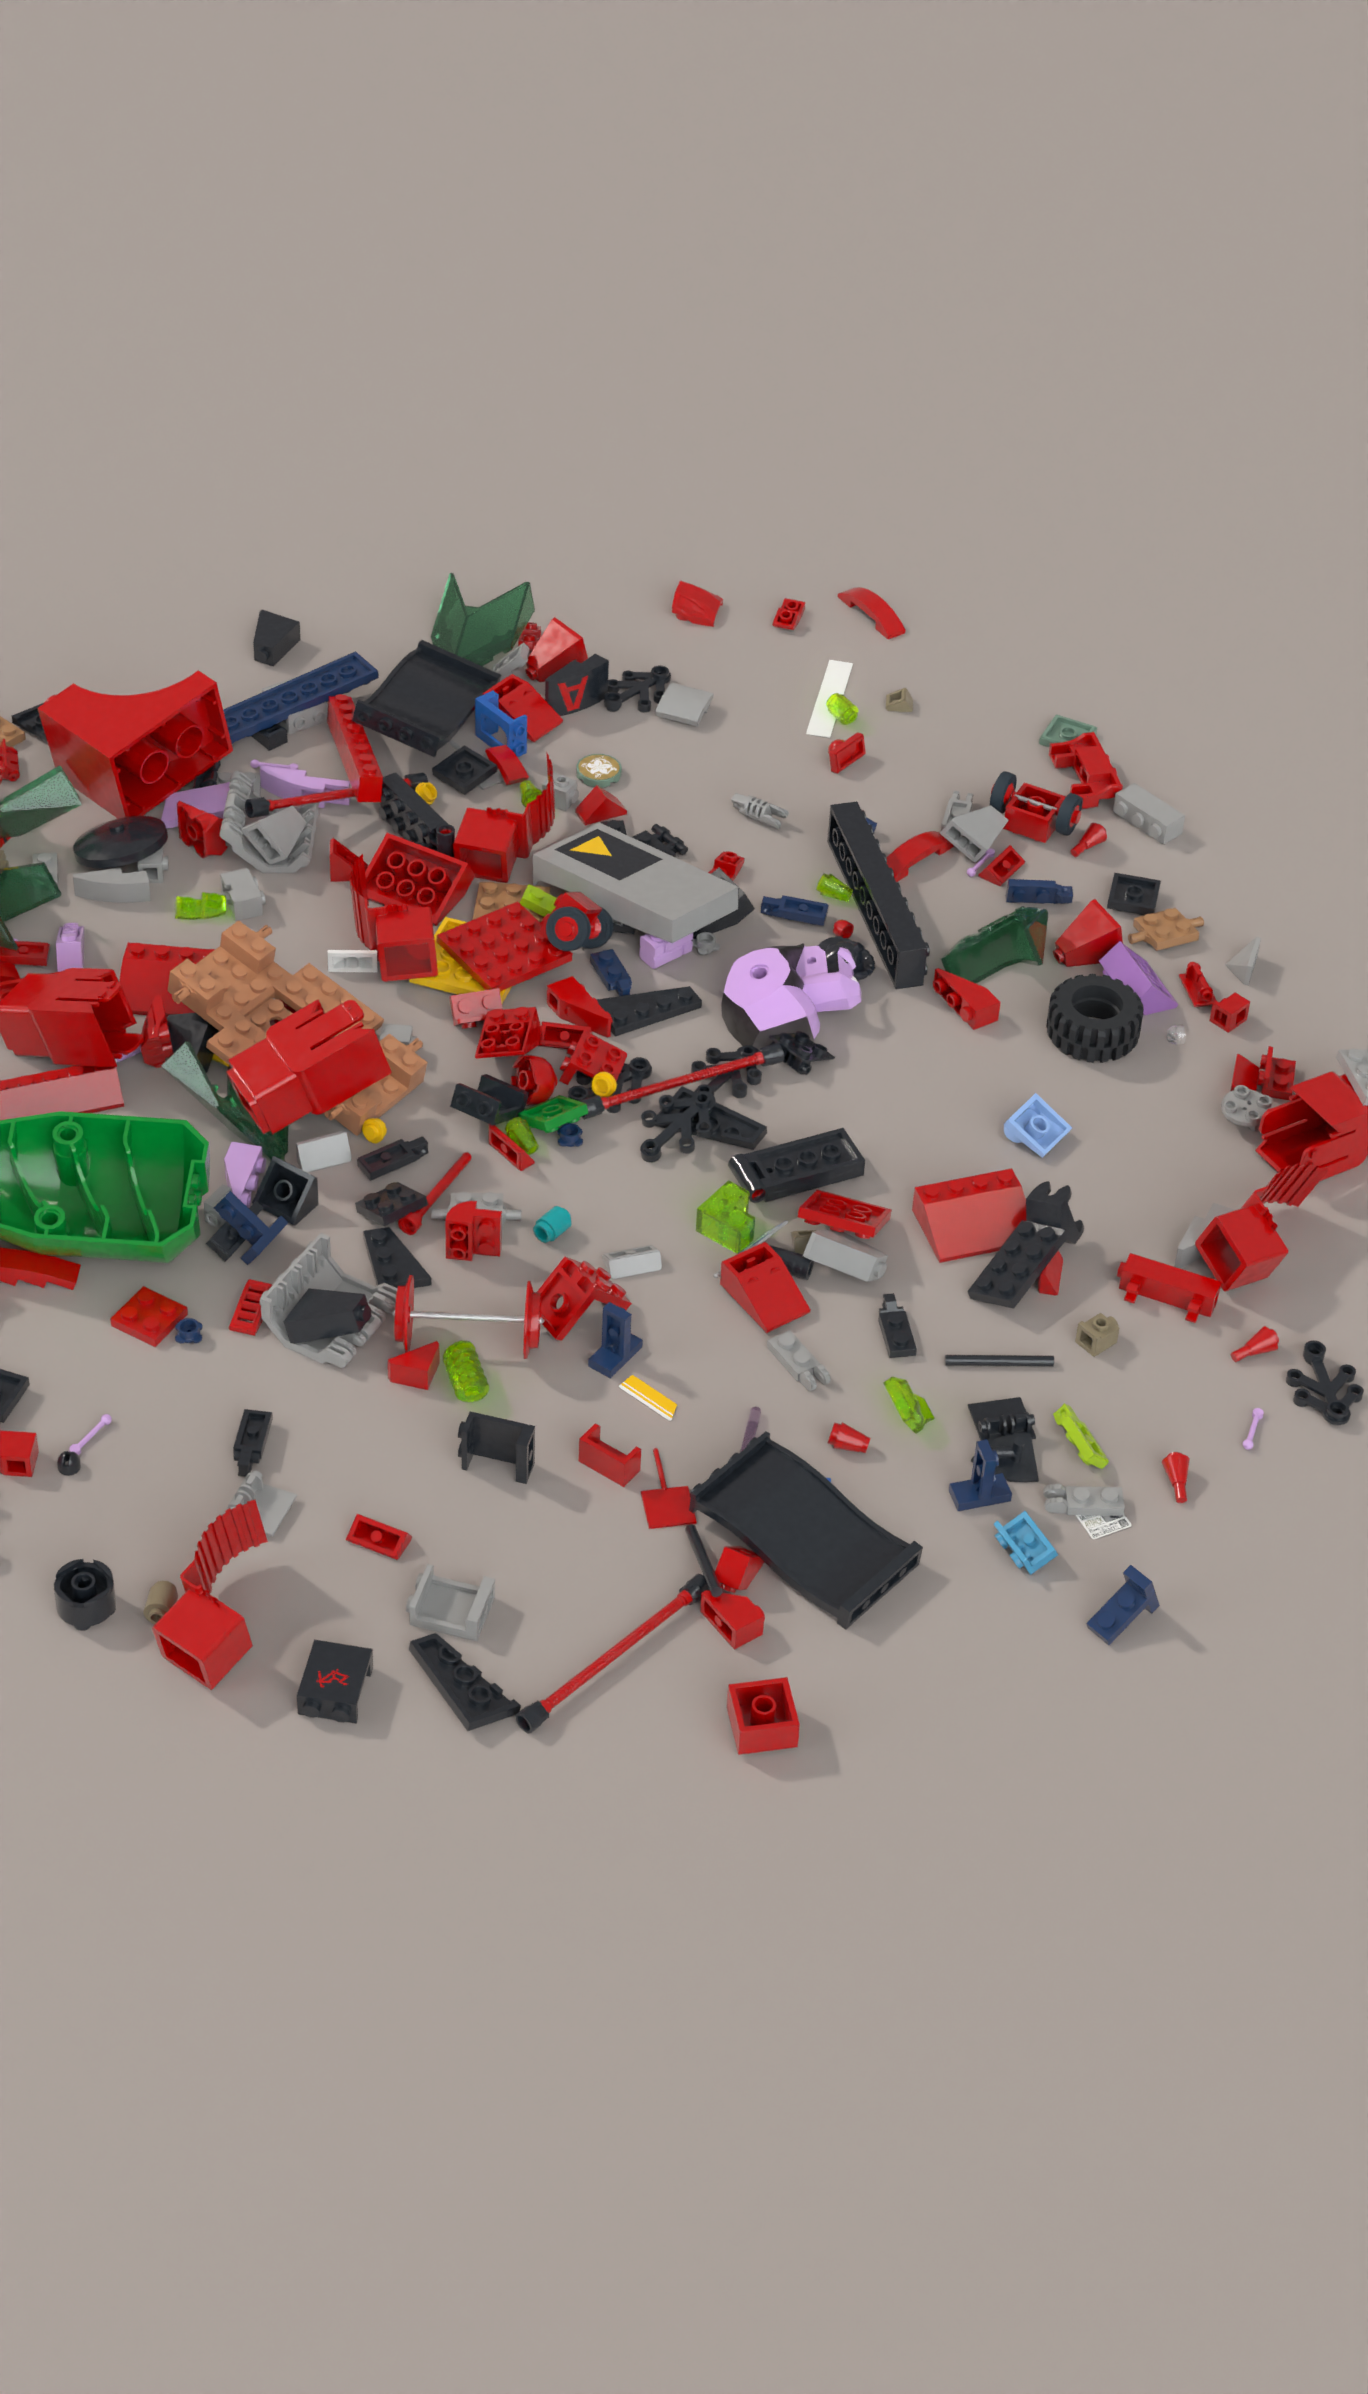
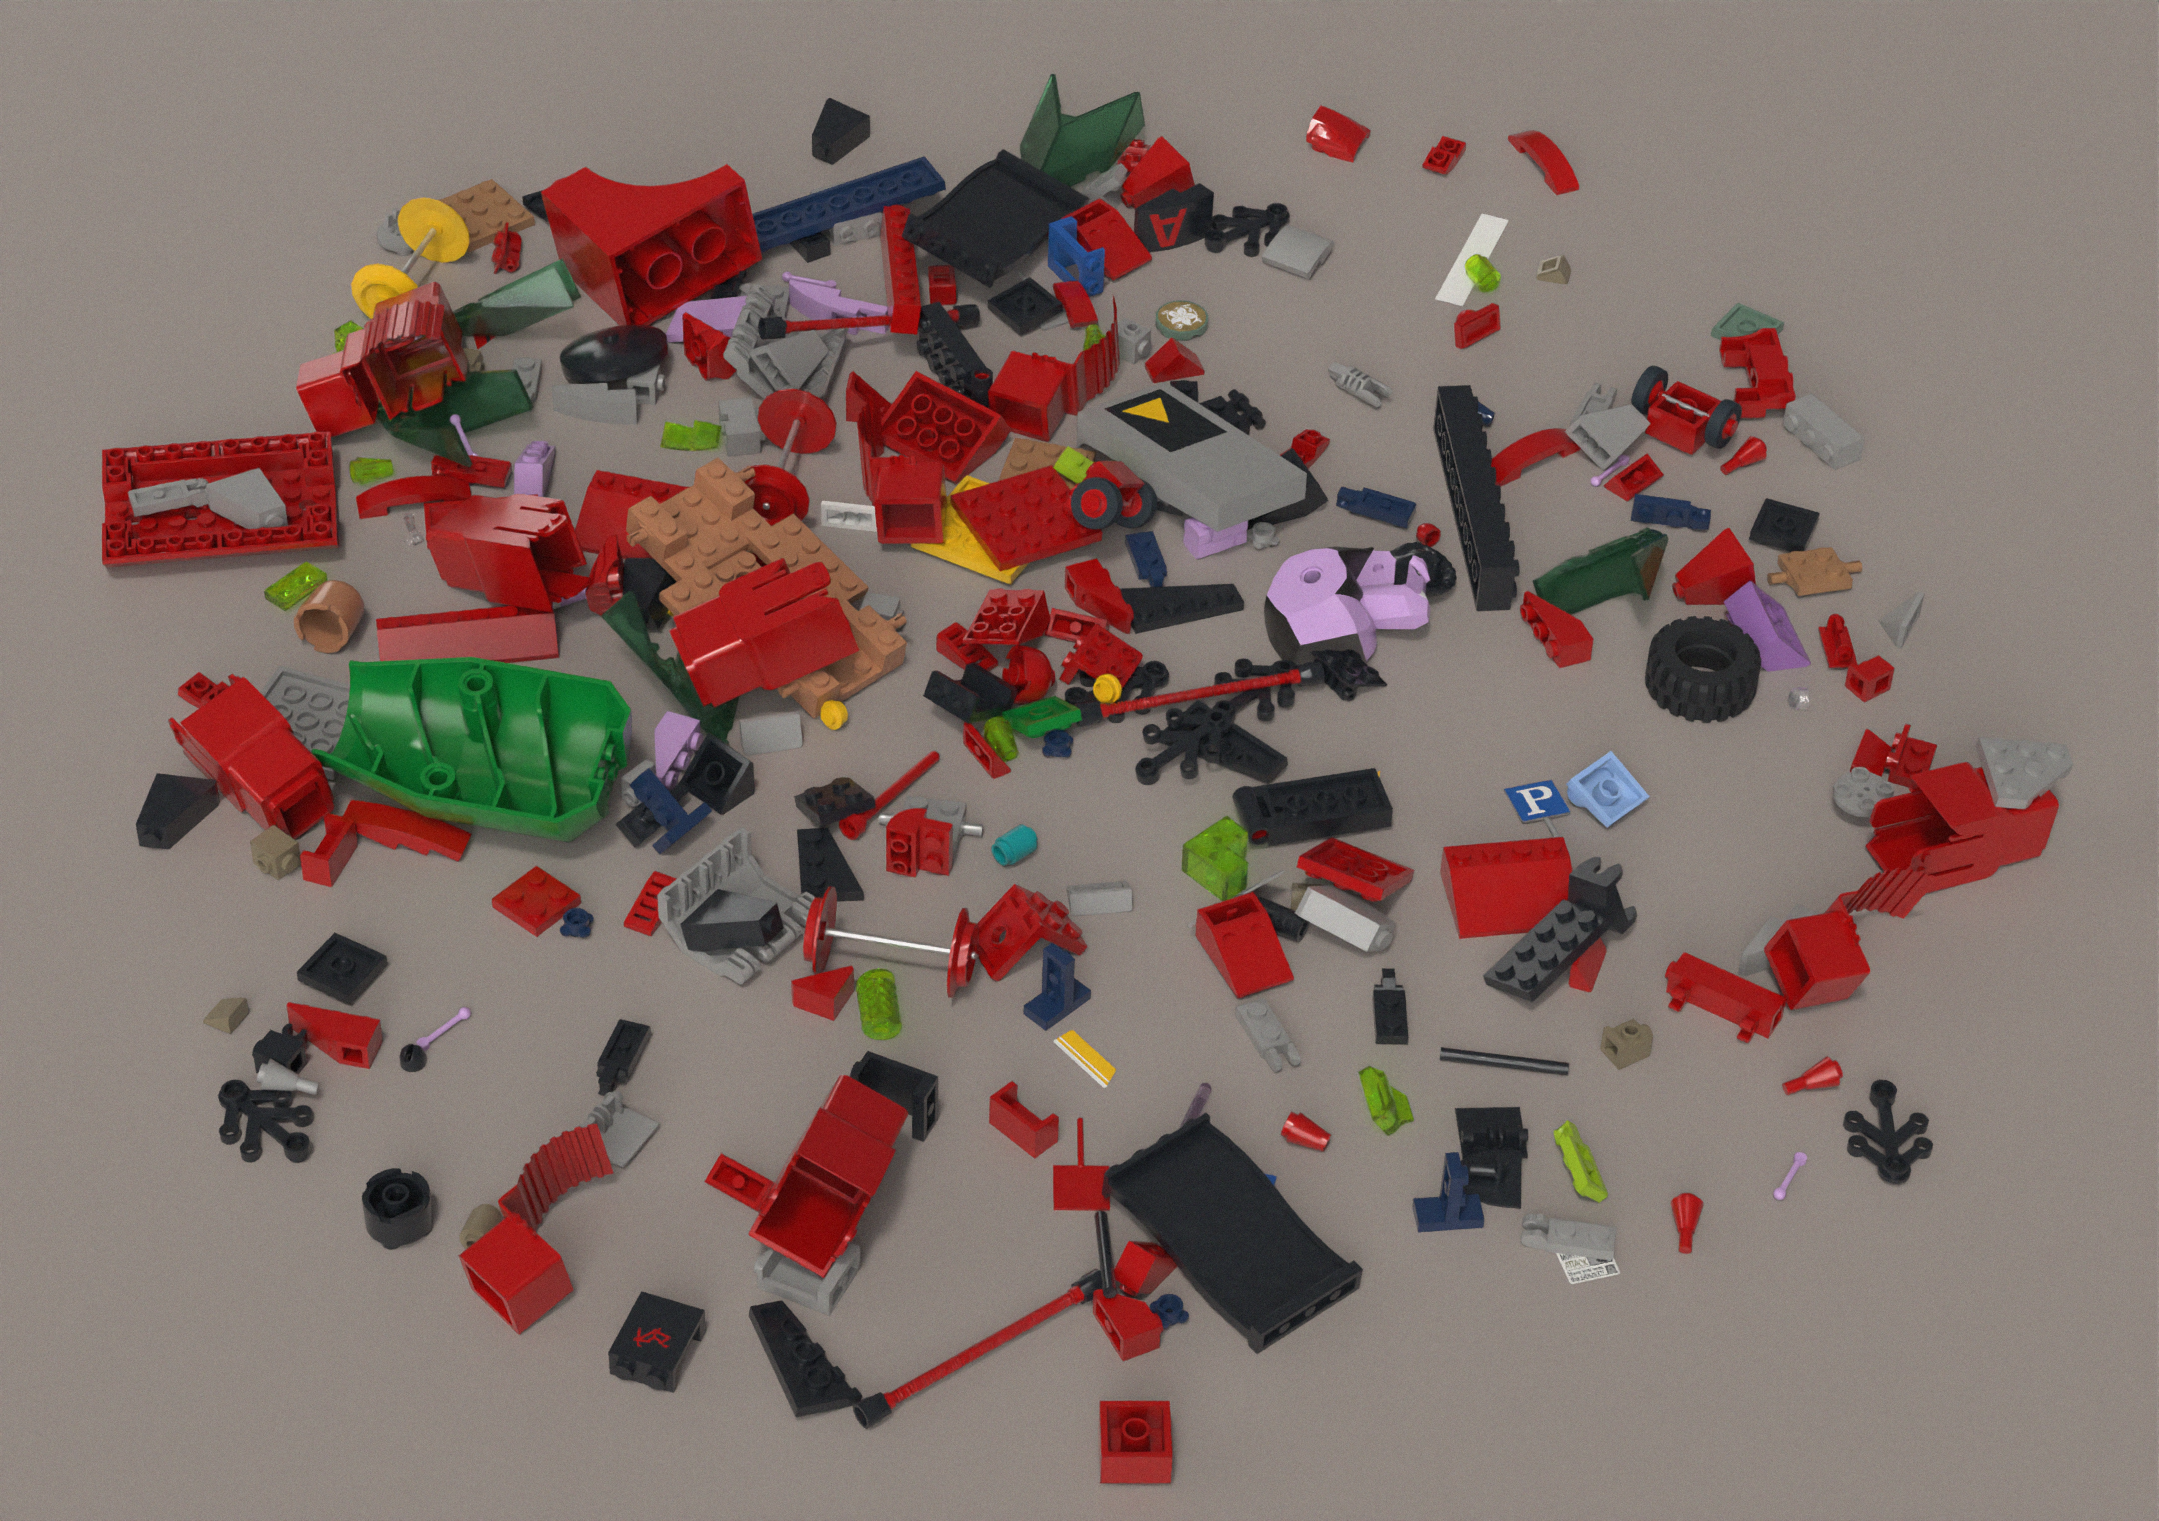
camera: 10 degrees right, 0 degrees up
(293, 887) = (798, 425): none -> red axle
(389, 758) = (942, 284): none -> red slope
(392, 1157) = (848, 747): black hinge -> none
(427, 792) = (975, 328): yellow plate -> none
(460, 1521) = (830, 1176): none -> red piece
(464, 1055) = (952, 638): none -> red slope
(473, 1006) = (974, 582): bracket -> none
(767, 1600) = (1169, 1309): none -> dark blue plate
(833, 888) = (1427, 484): clear neon green cone -> none
(980, 1143) = (1538, 802): none -> blue piece
(1026, 1541) = (1488, 1278): dark azure bracket -> none
(1124, 1606) = (1587, 1367): dark blue bracket -> none

